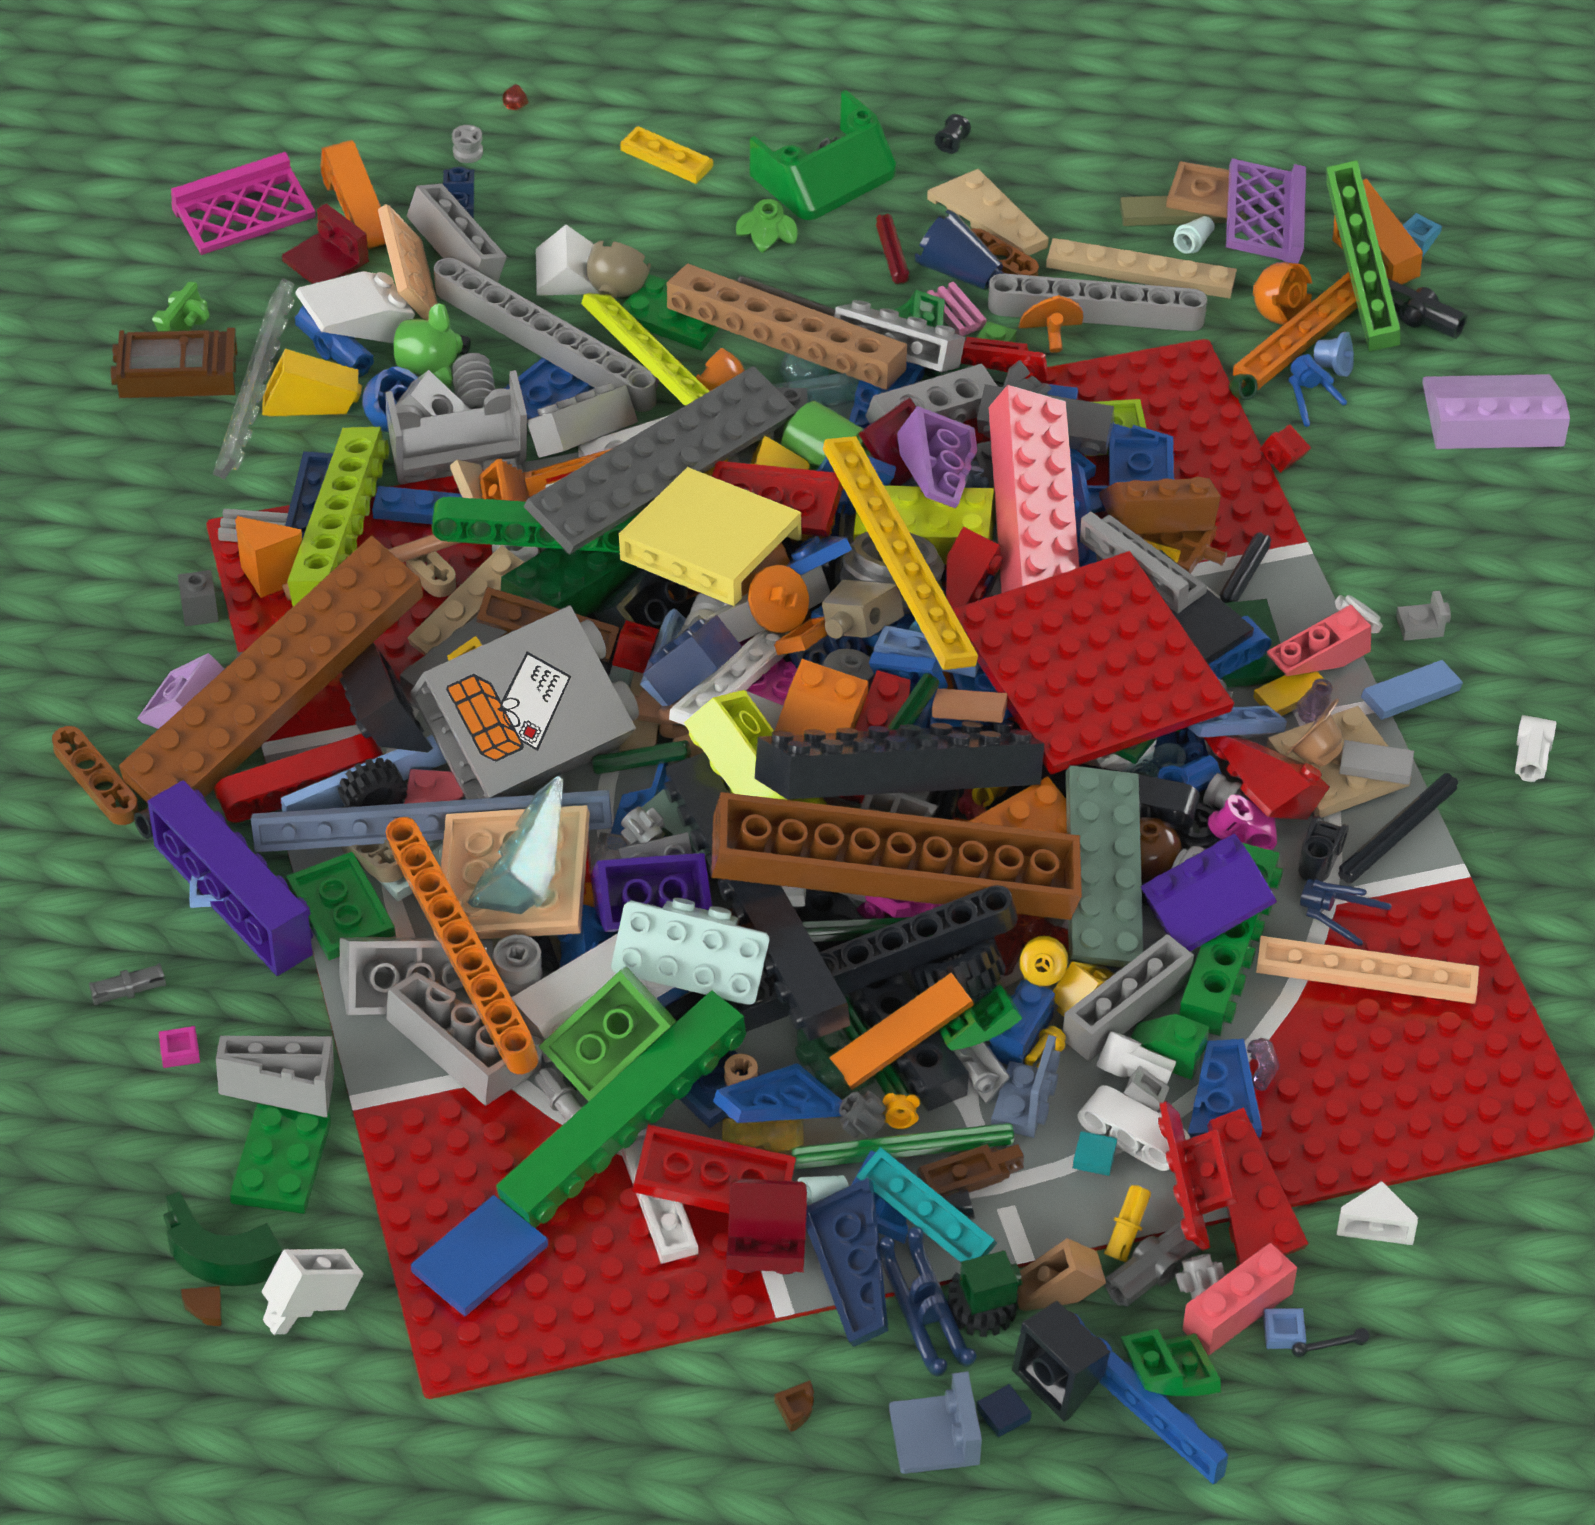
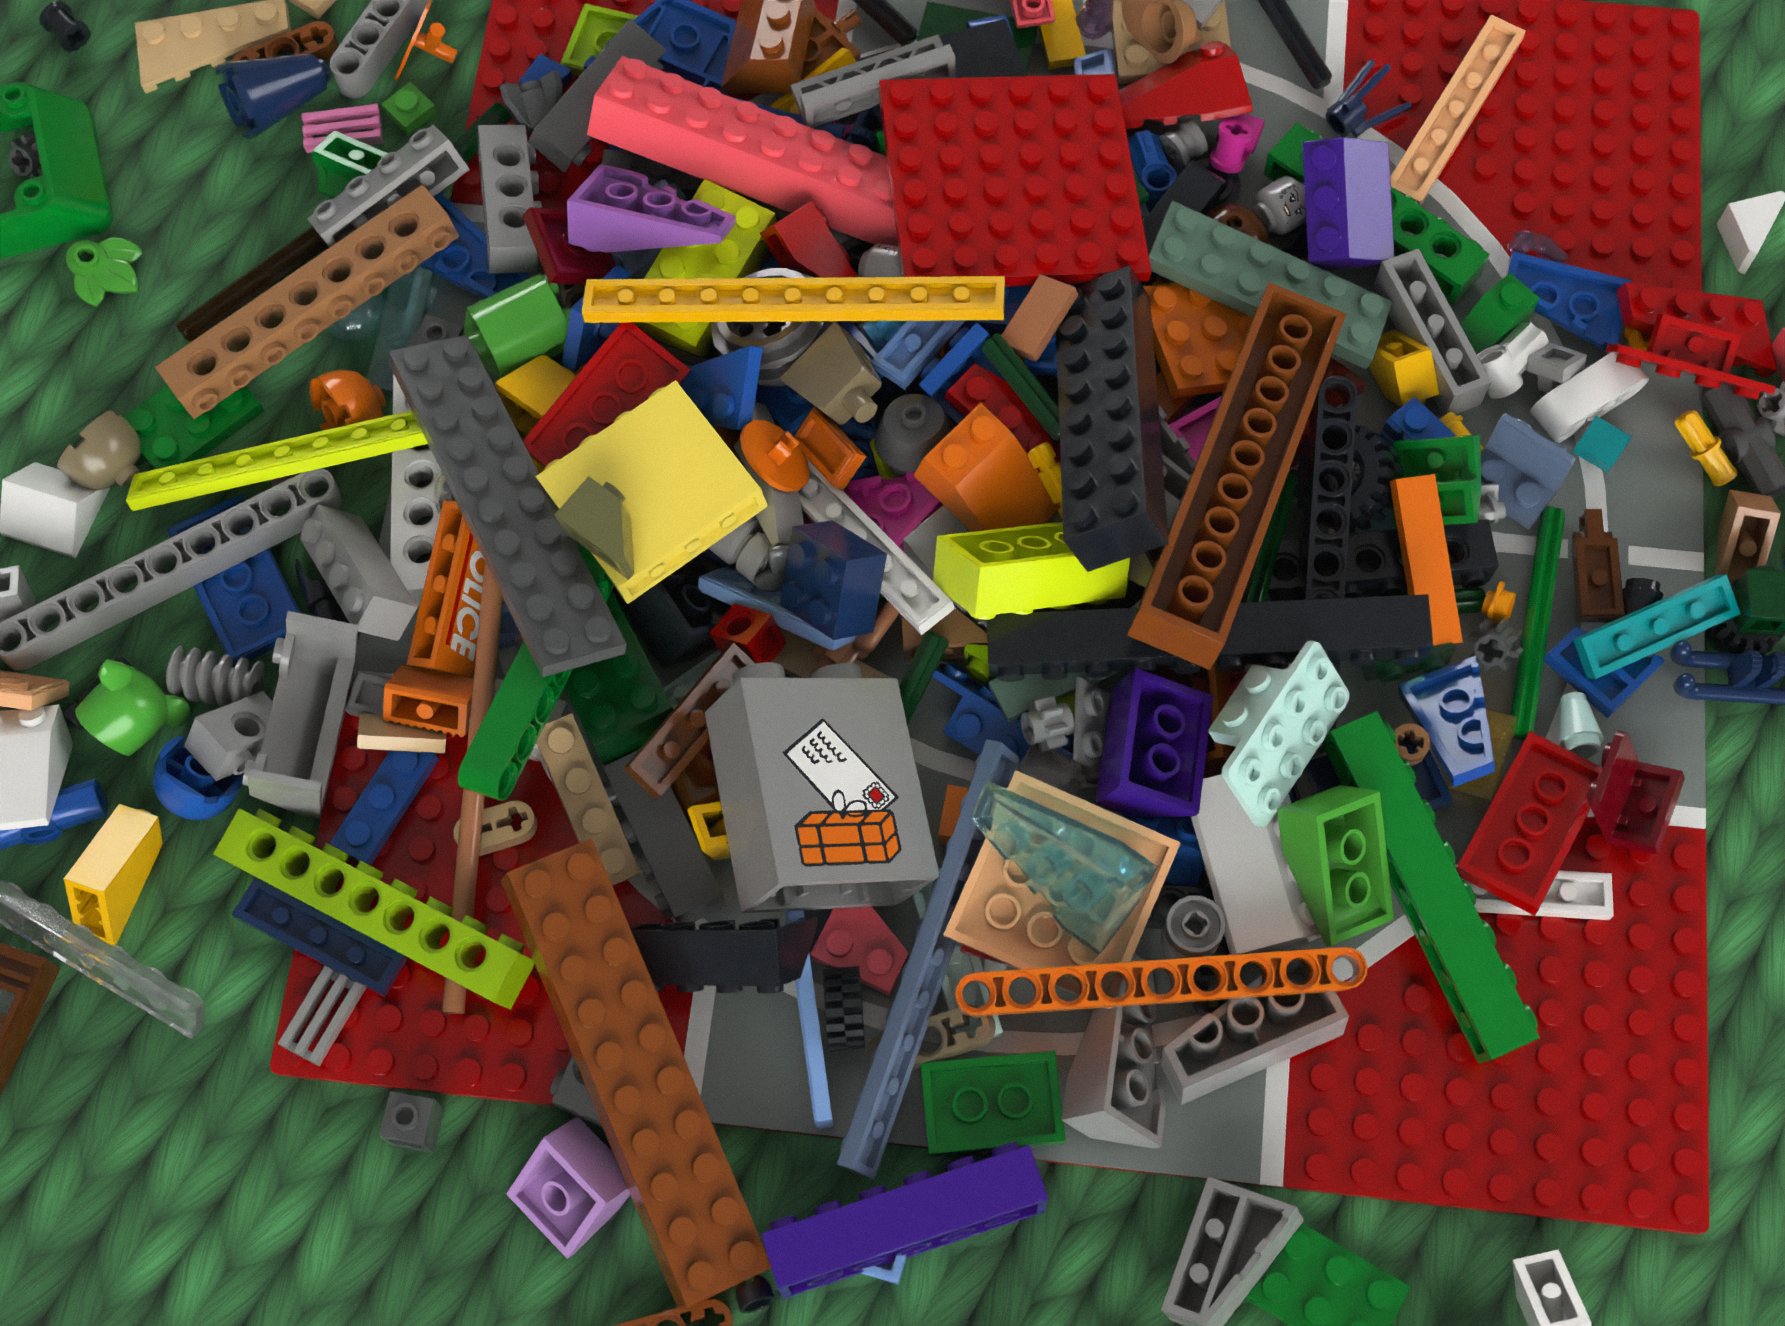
camera: 65 degrees left, 20 degrees up
(264, 786) = (773, 1094): red beam -> none
(267, 553) = (402, 1013): orange slope -> none
(479, 1255) = (1551, 1111): blue tile -> none
(561, 1096) = (1374, 943): light grey axle -> none
(657, 502) = (600, 524): none -> olive slope
(849, 1254) = (1686, 724): dark blue wing -> none
(892, 248) = (211, 155): dark red axle -> none
(1003, 355) = (455, 107): red bracket -> none
(1045, 948) = (1384, 388): yellow head -> none
(1321, 849) = (1286, 87): black piece -> none

